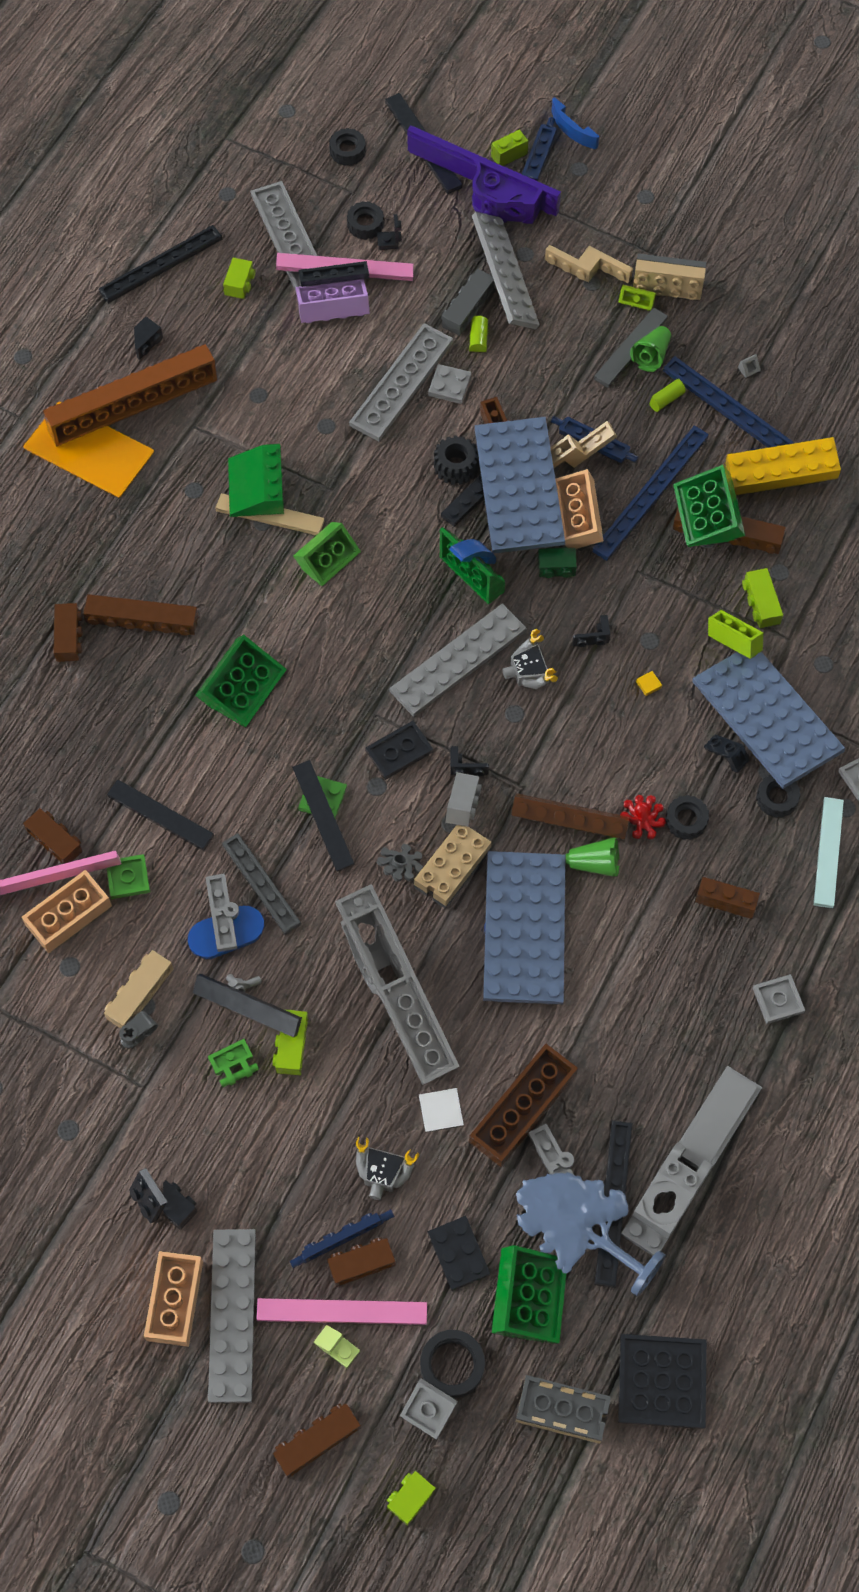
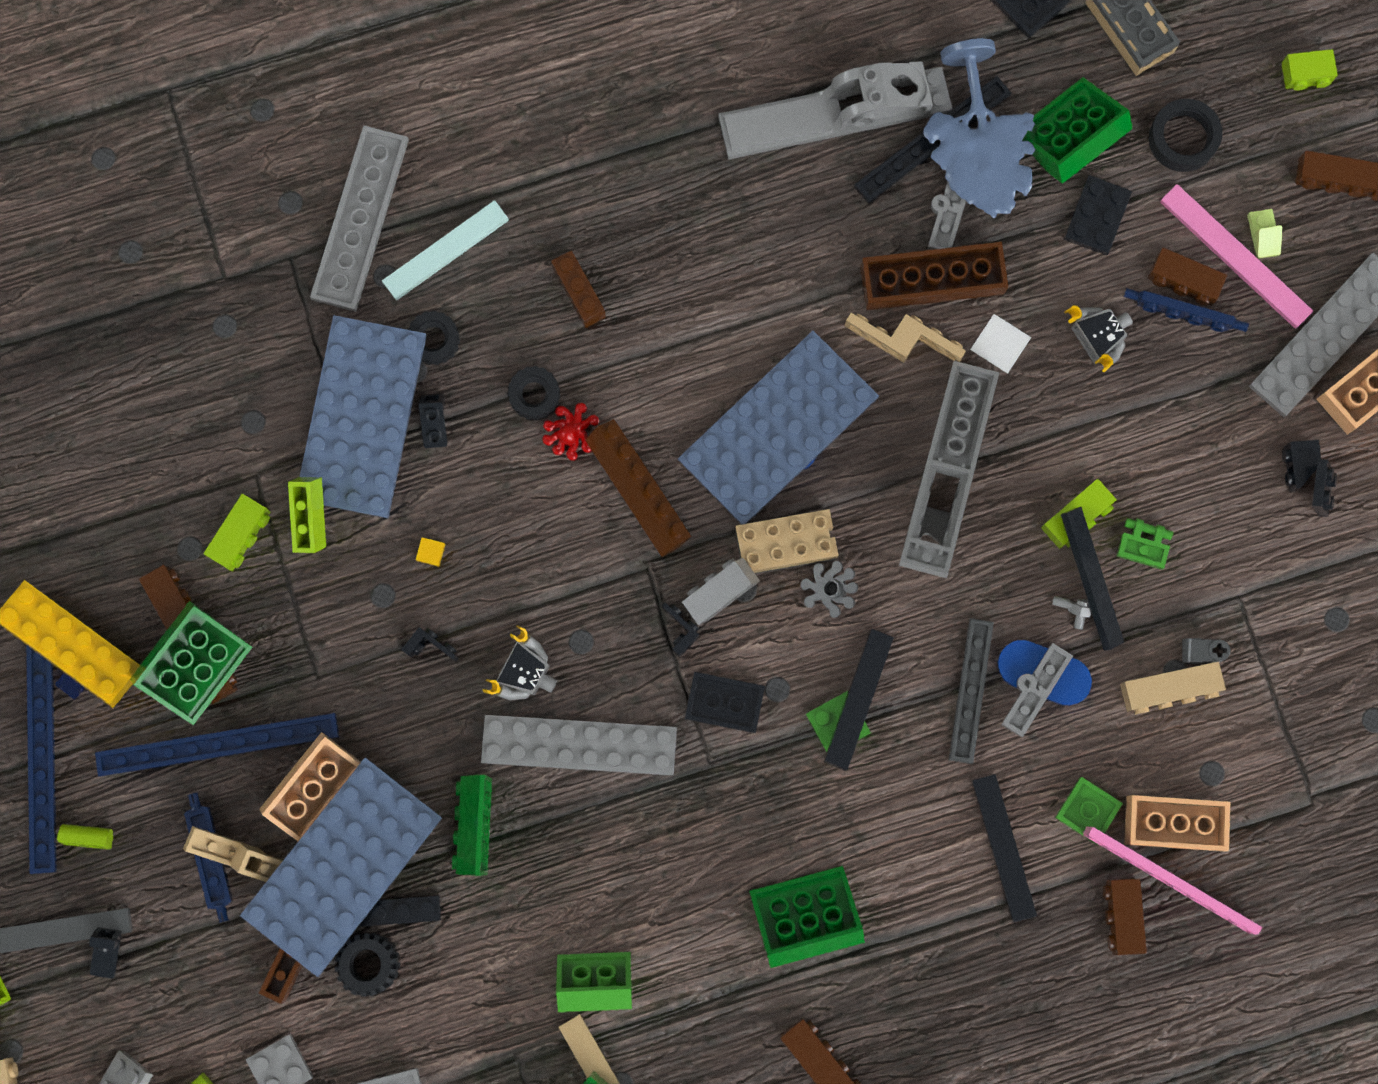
camera: 135 degrees left, 15 degrees up
(428, 1408) = (1237, 116): light grey plate -> none
(469, 548) = (471, 823): blue slope -> none
(503, 1052) = (905, 337): none -> tan bracket
(557, 562) = (386, 754): dark green brick -> none
(596, 356) = (105, 952): none -> black bracket
(596, 857) = (655, 428): bright green cone -> none
(651, 349) = (41, 904): bright green cone -> none
(778, 999) = (627, 168): light grey plate -> none

